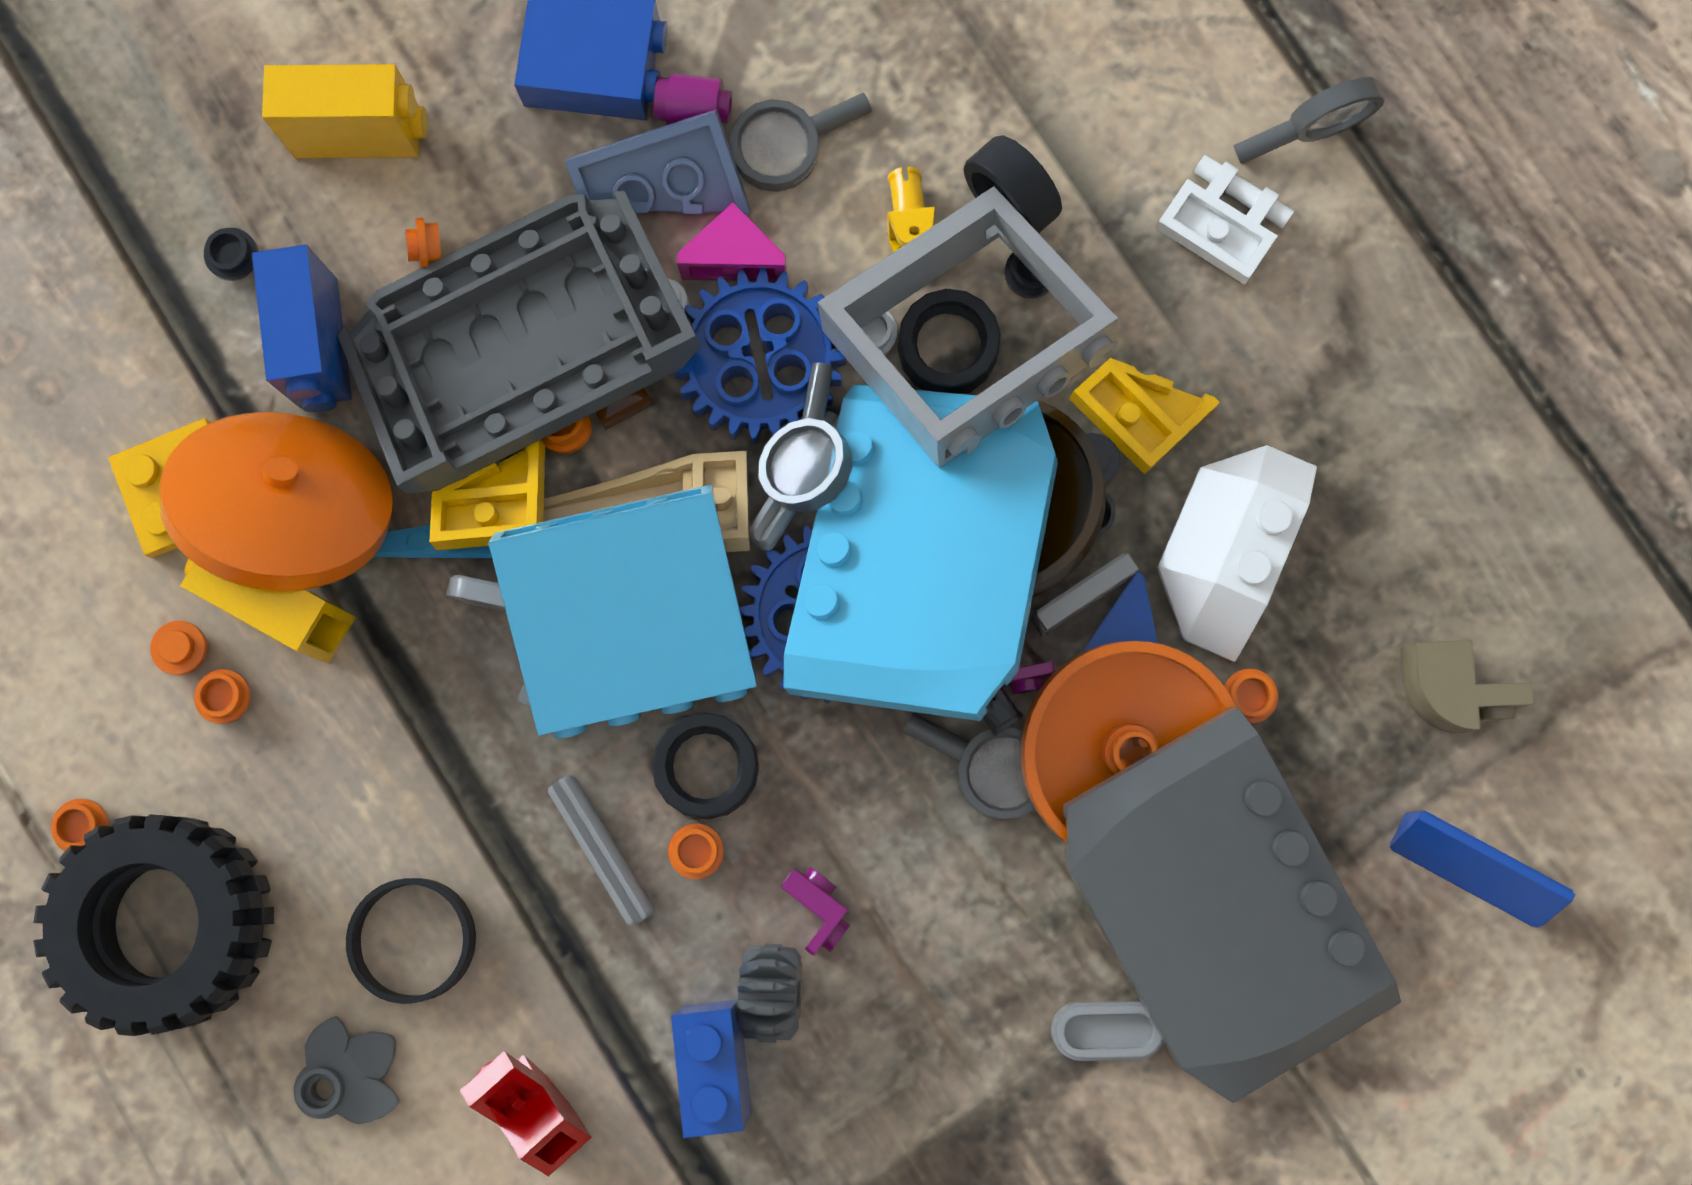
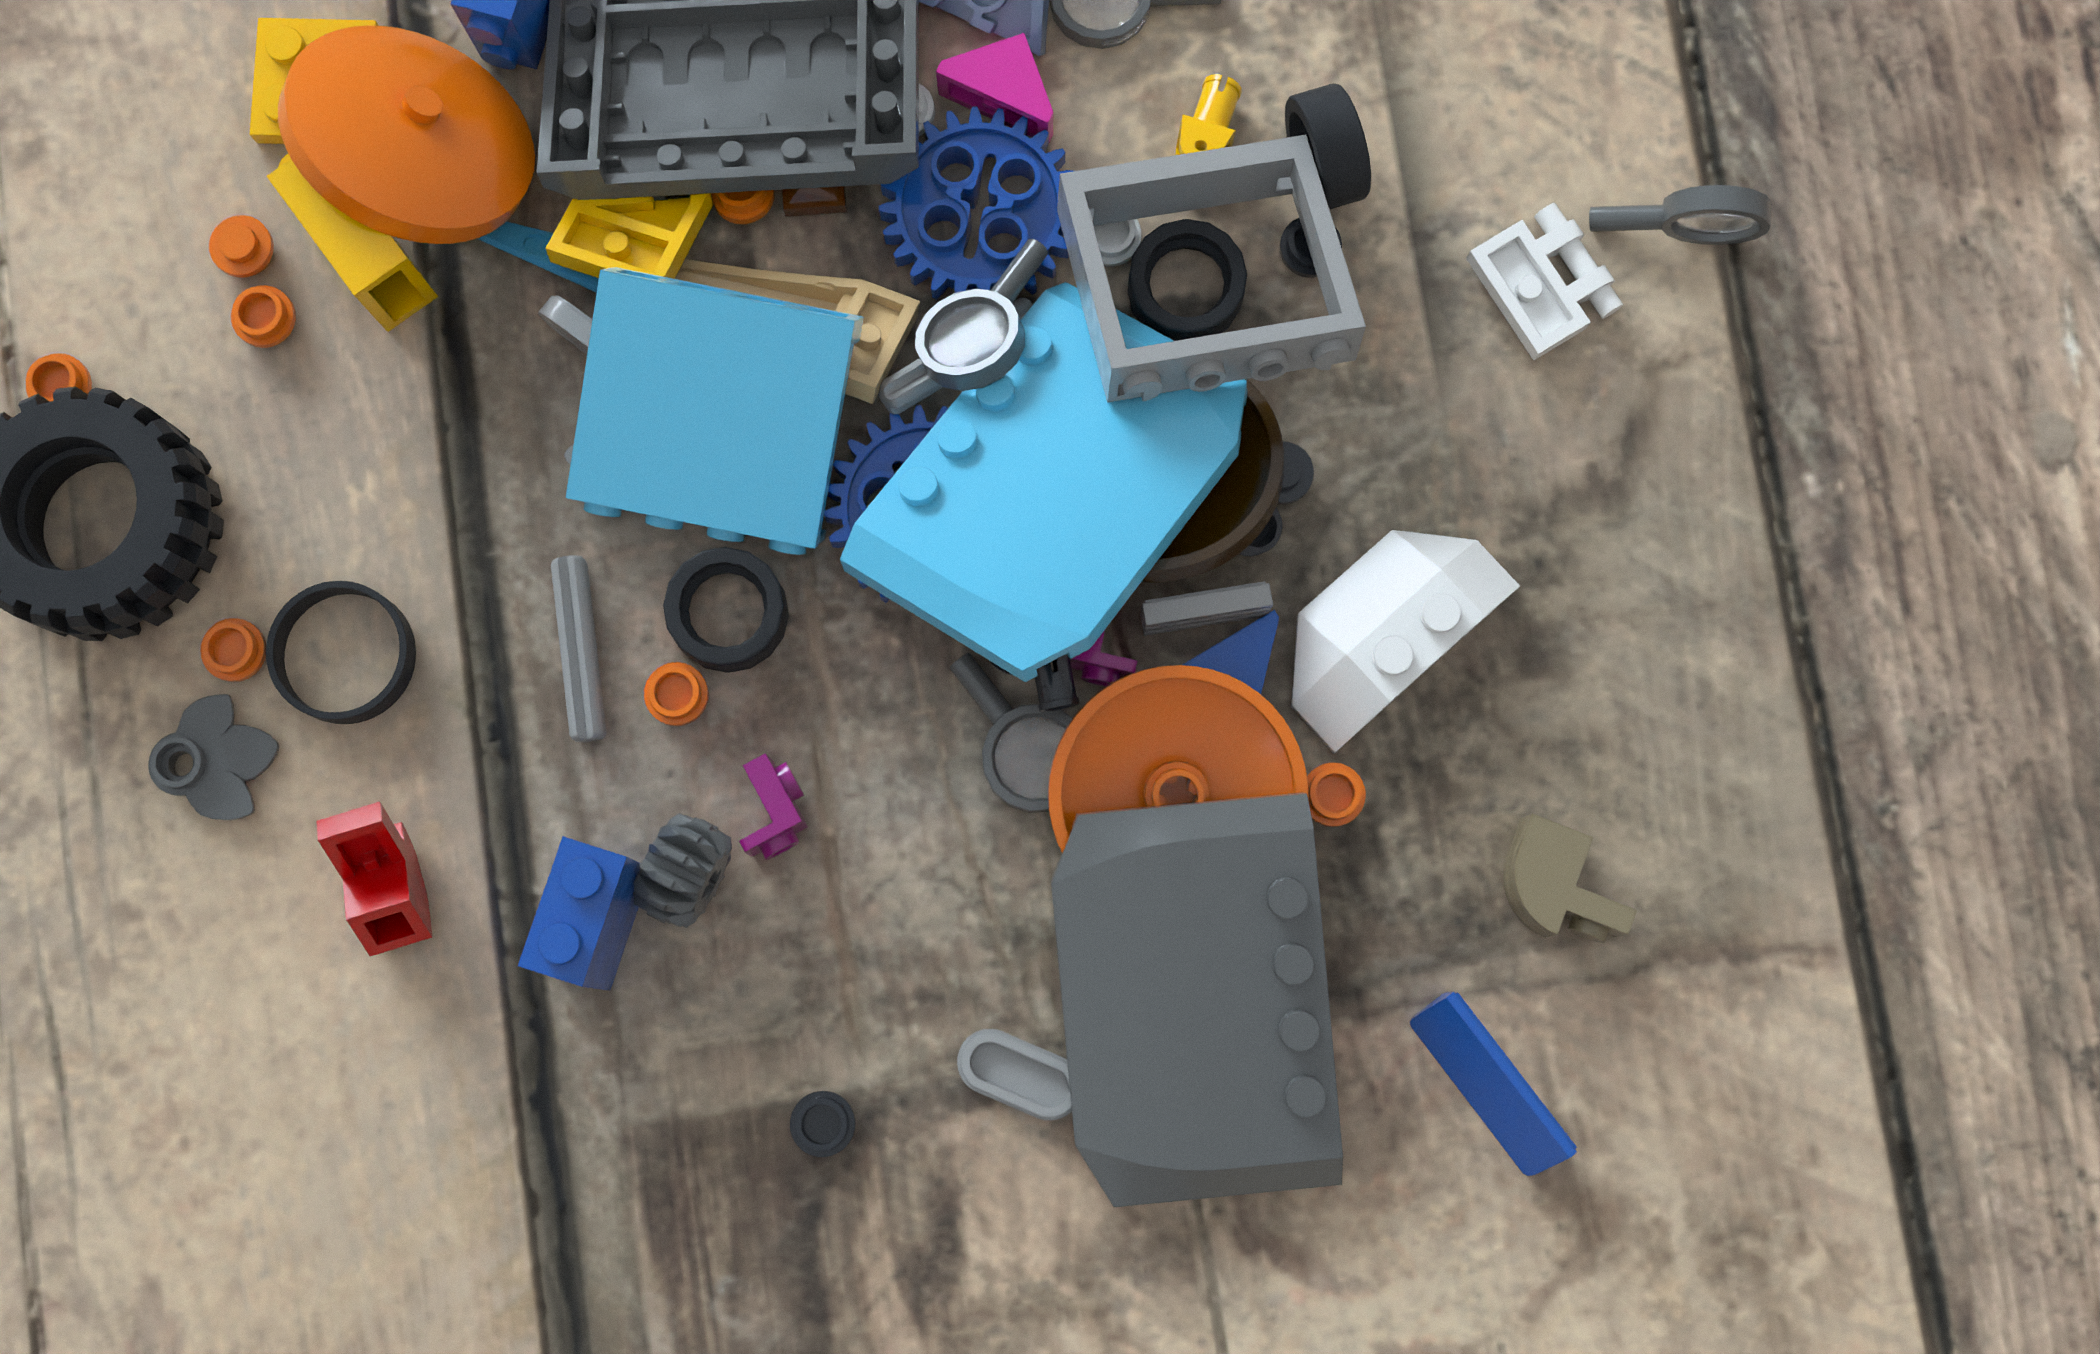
camera: 20 degrees right, 0 degrees up
(322, 977) = (233, 650): none -> orange plate
(972, 1142) = (822, 1123): none -> black plate
(1140, 411) = (1357, 444): yellow wing -> none

